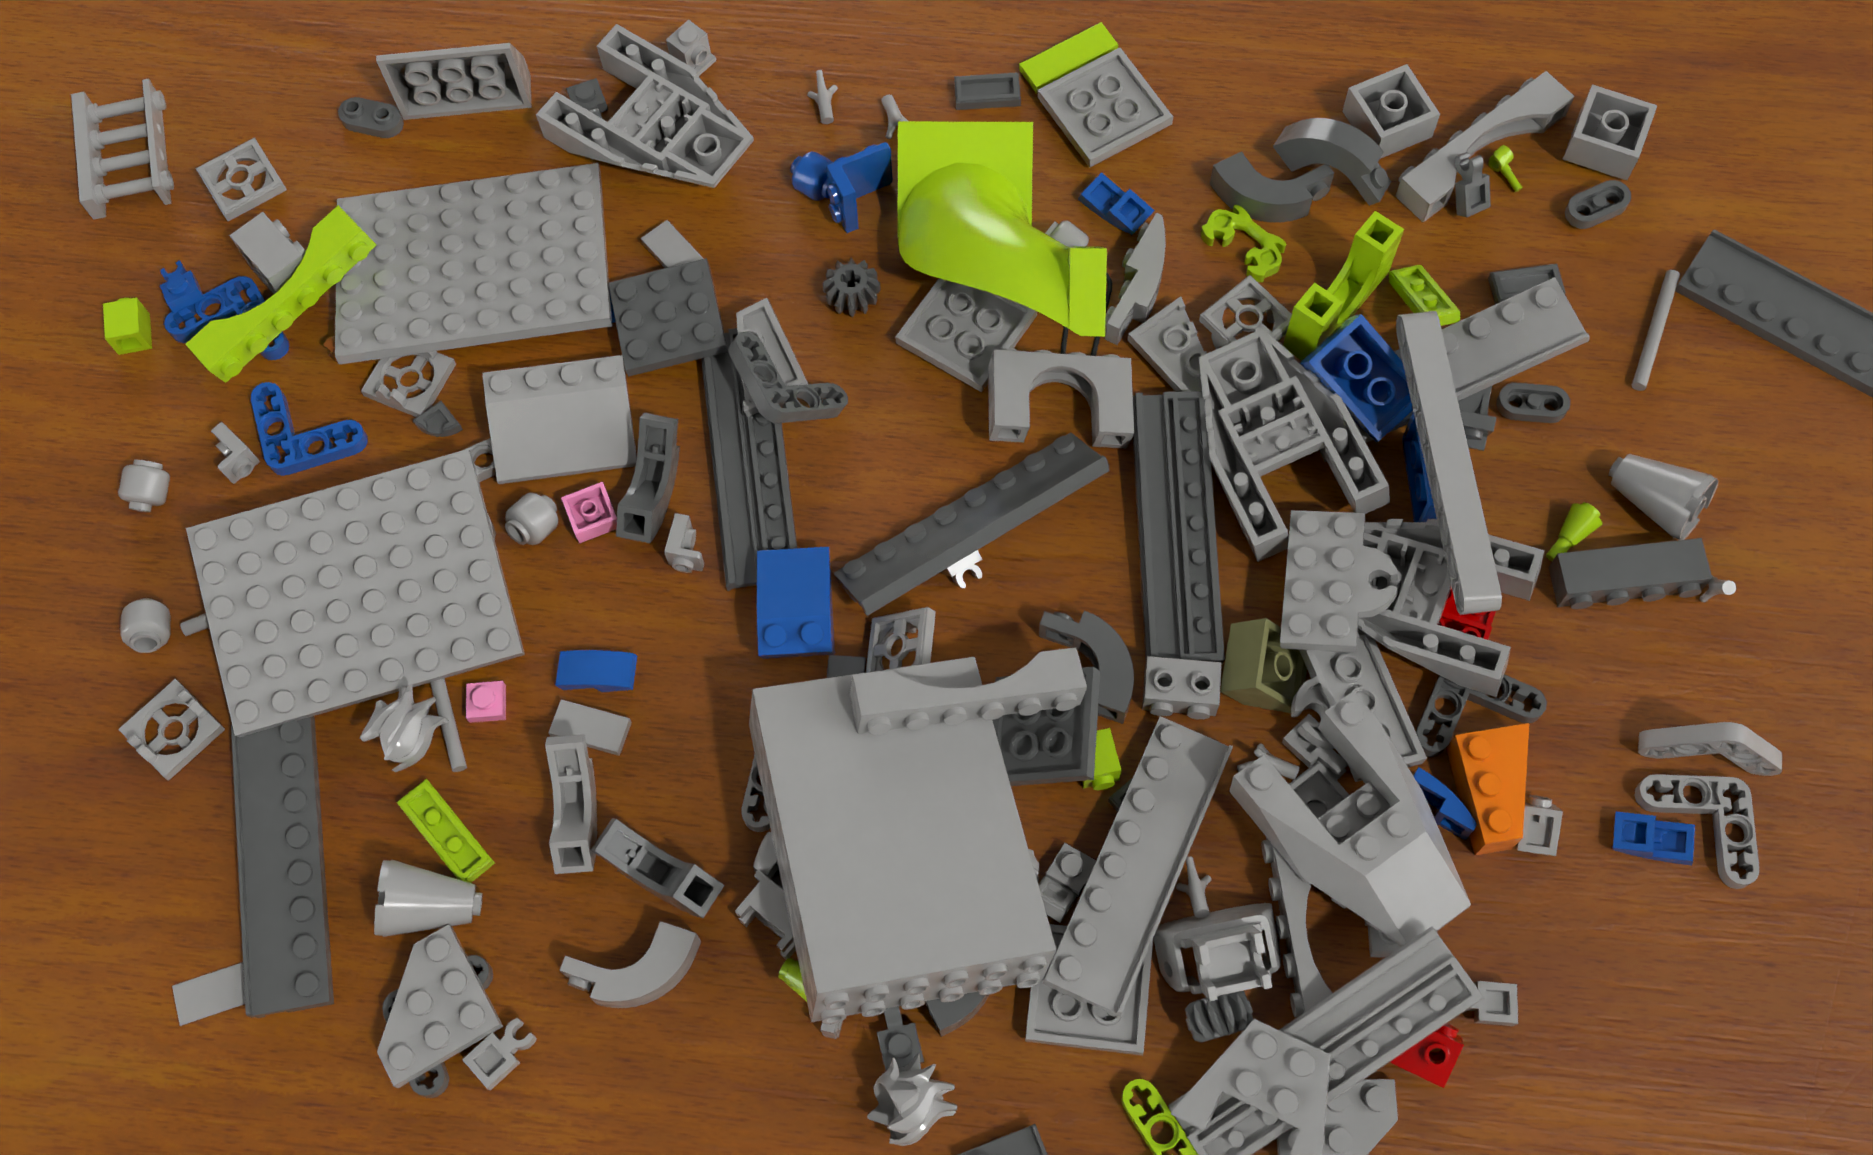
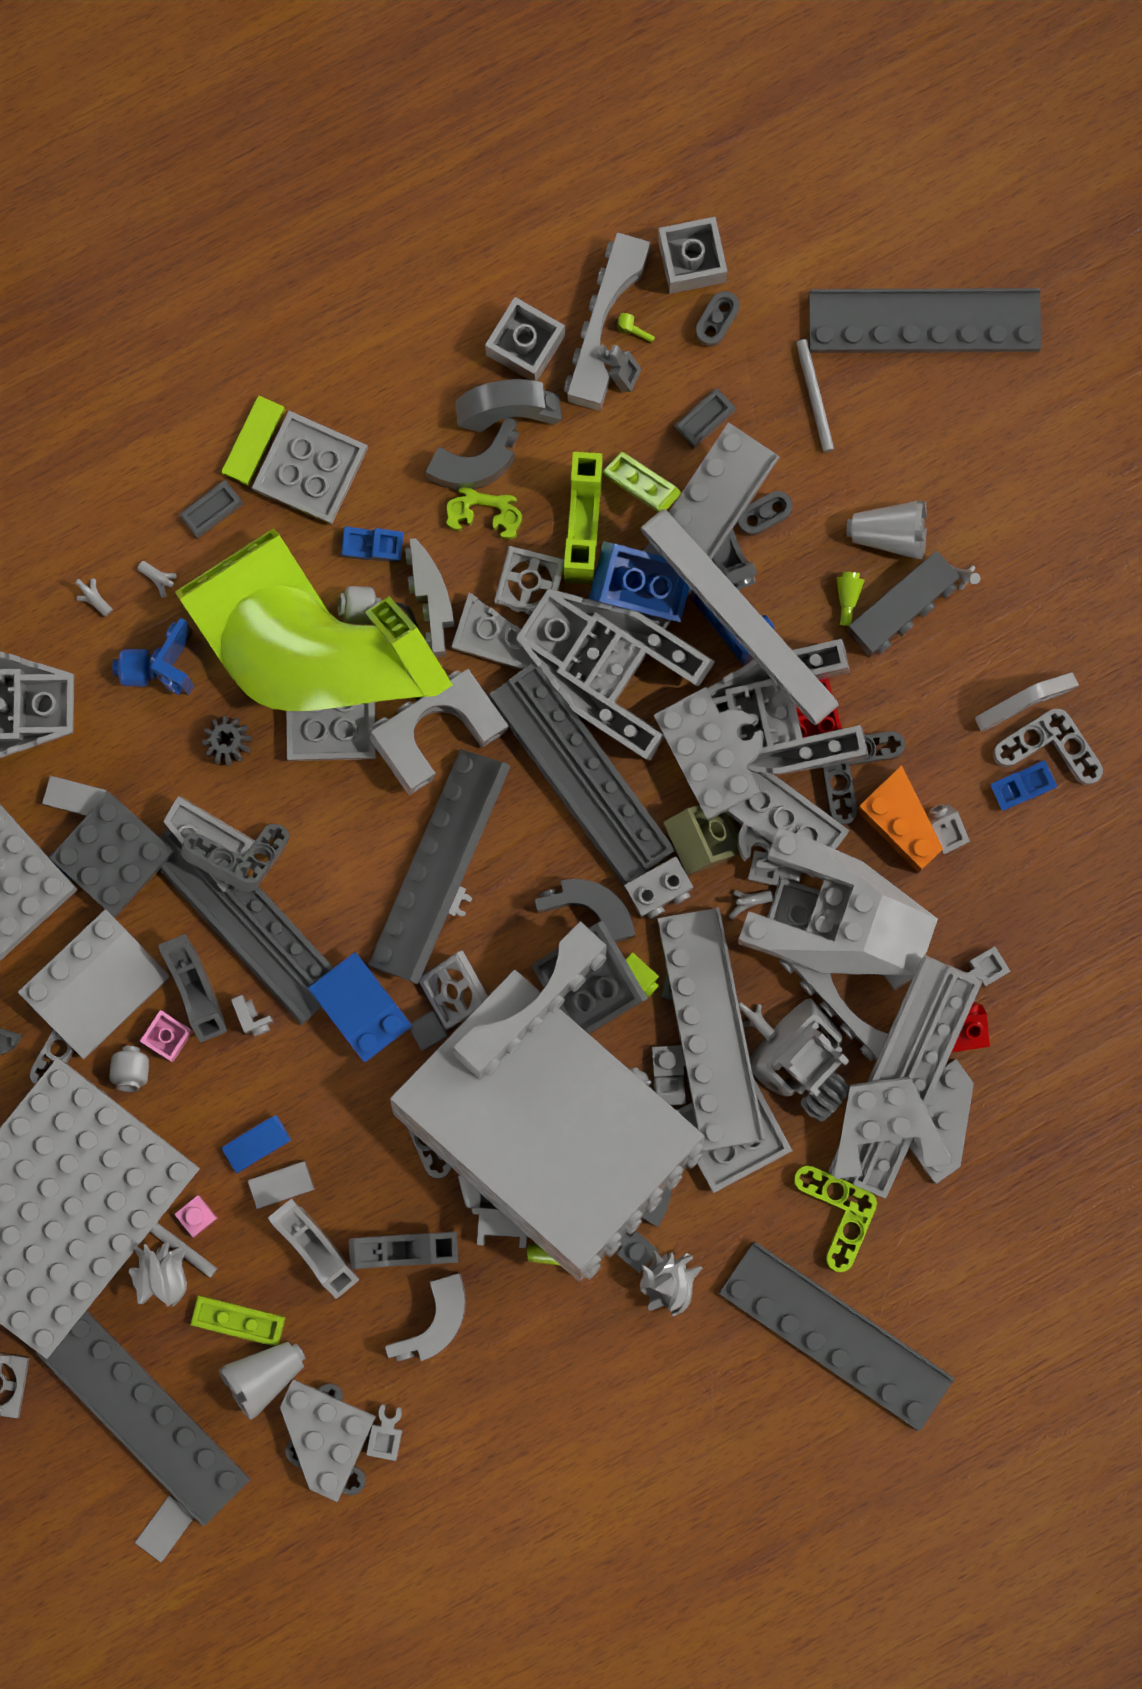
camera: 35 degrees left, 15 degrees up
(1451, 811) = (884, 856): blue slope -> none

